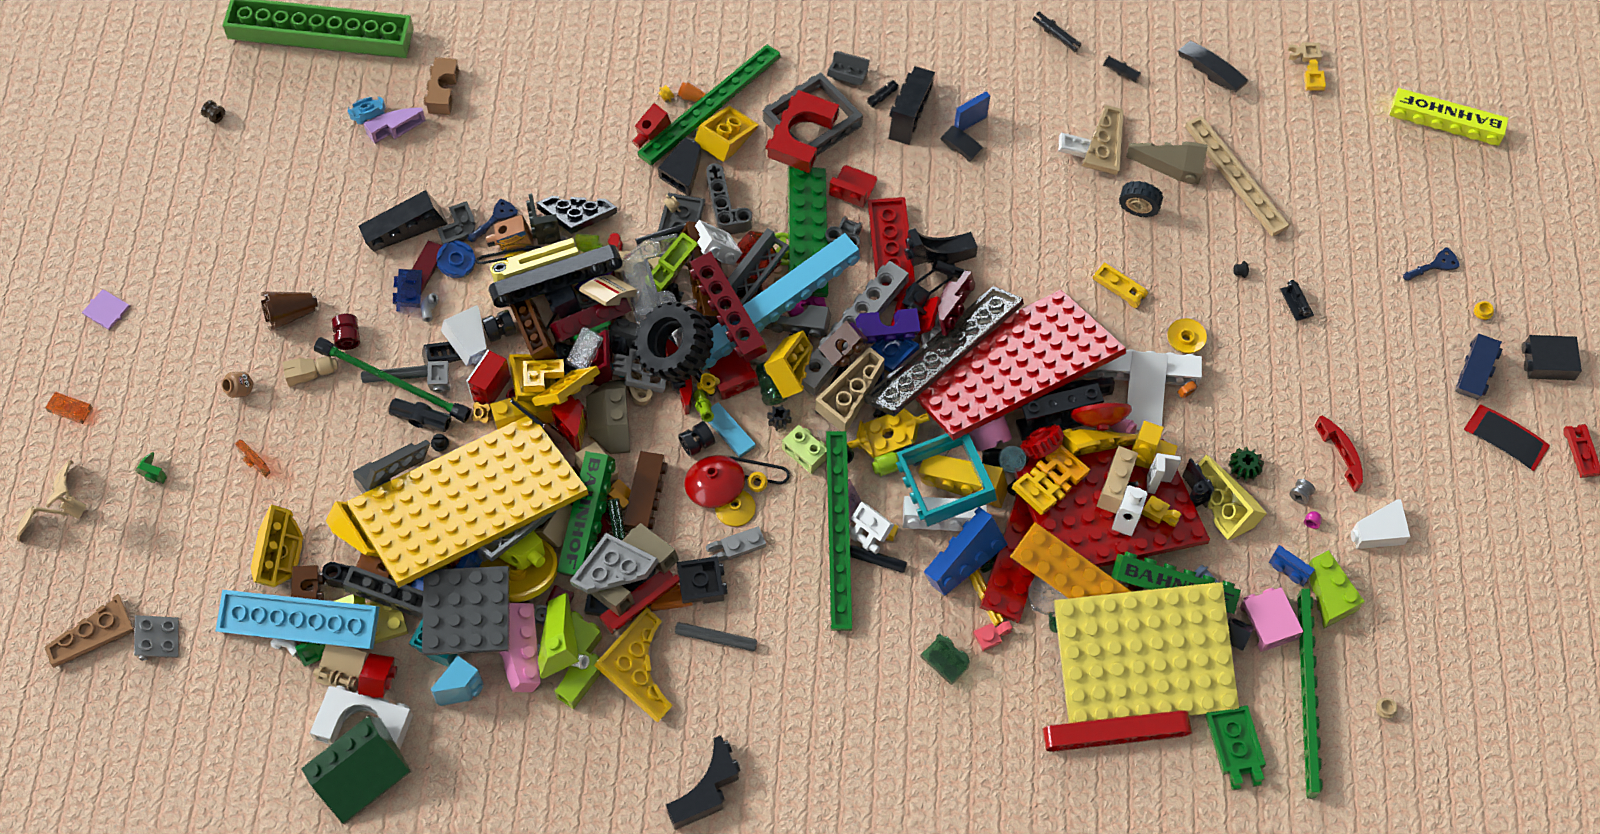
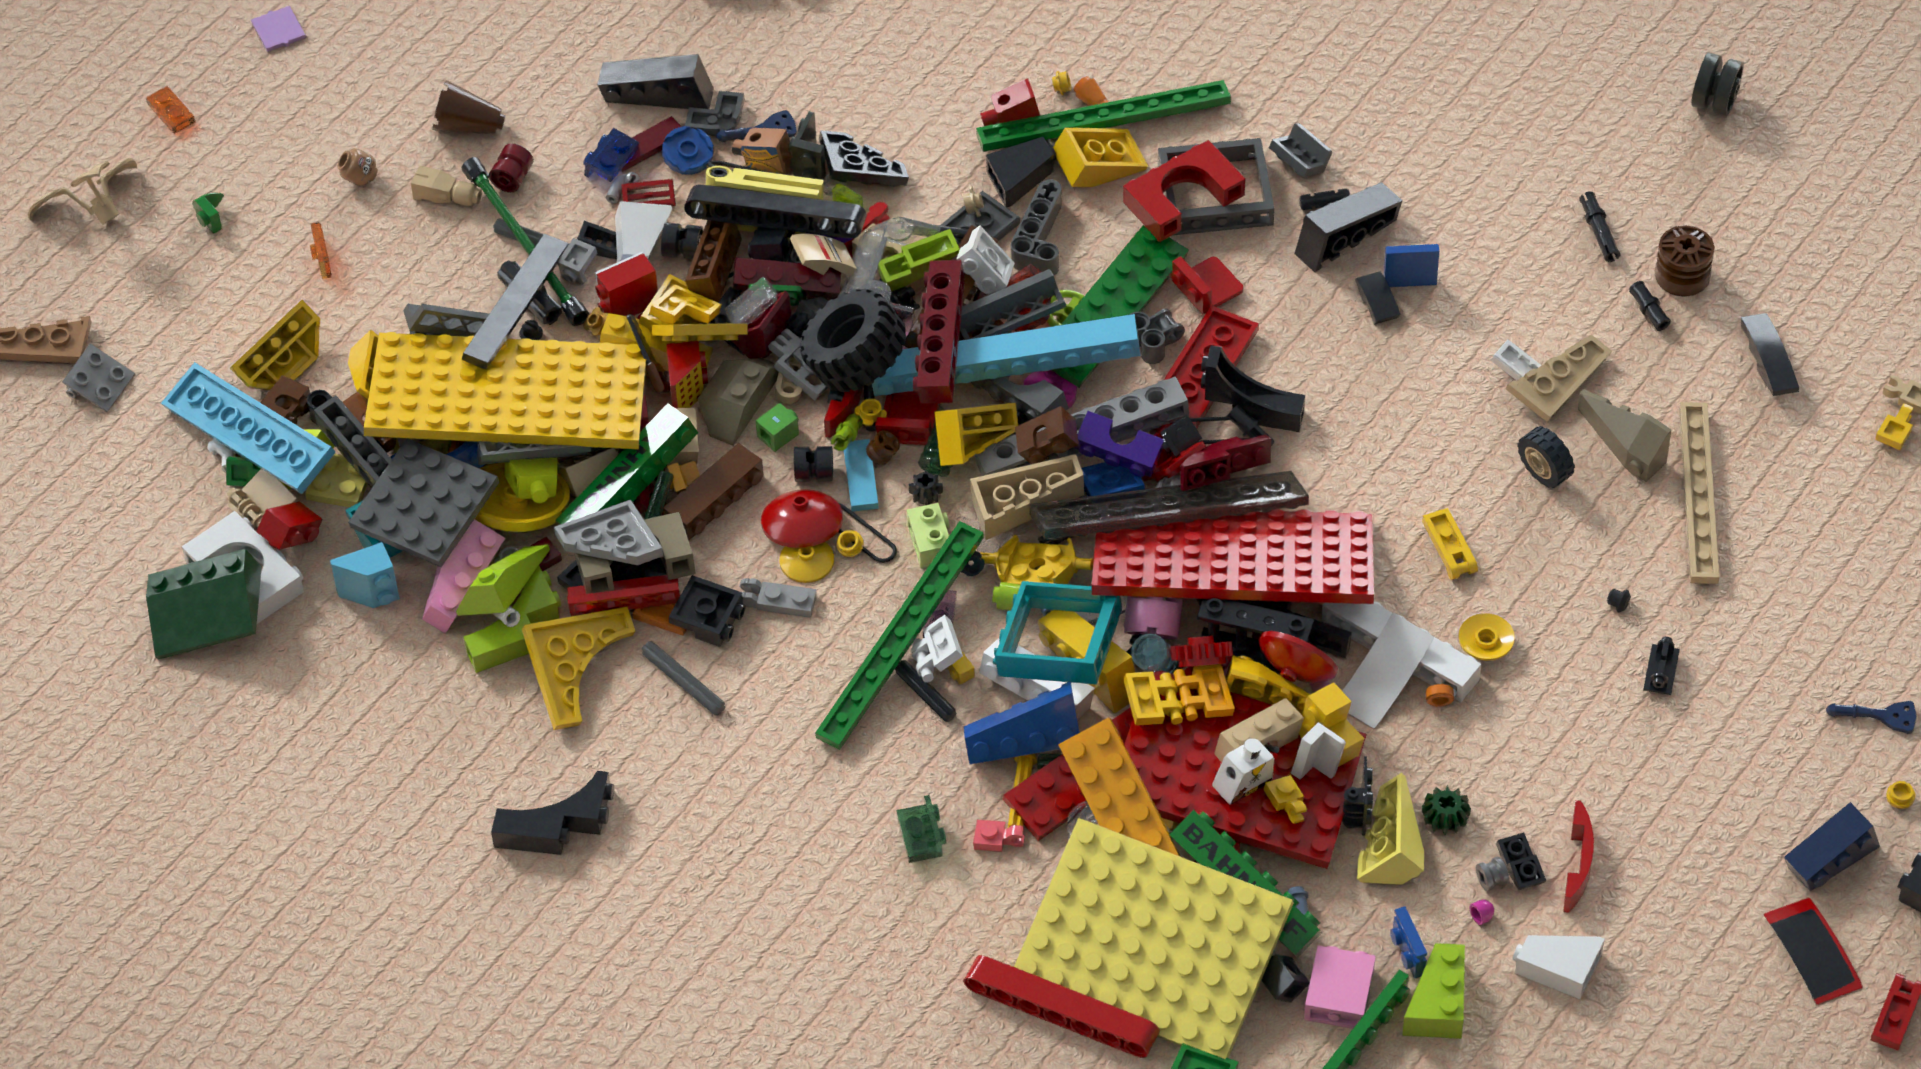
camera: 35 degrees right, 10 degrees down
(424, 430) = (514, 302): none -> tile
(438, 312) = (648, 195): none -> red tile
(653, 425) = (777, 427): none -> bright green brick
(733, 403) = (882, 447): none -> reddish brown wheel
(1125, 30) = (1684, 260): none -> reddish brown wheel
(1304, 469) = (1520, 861): none -> black slope

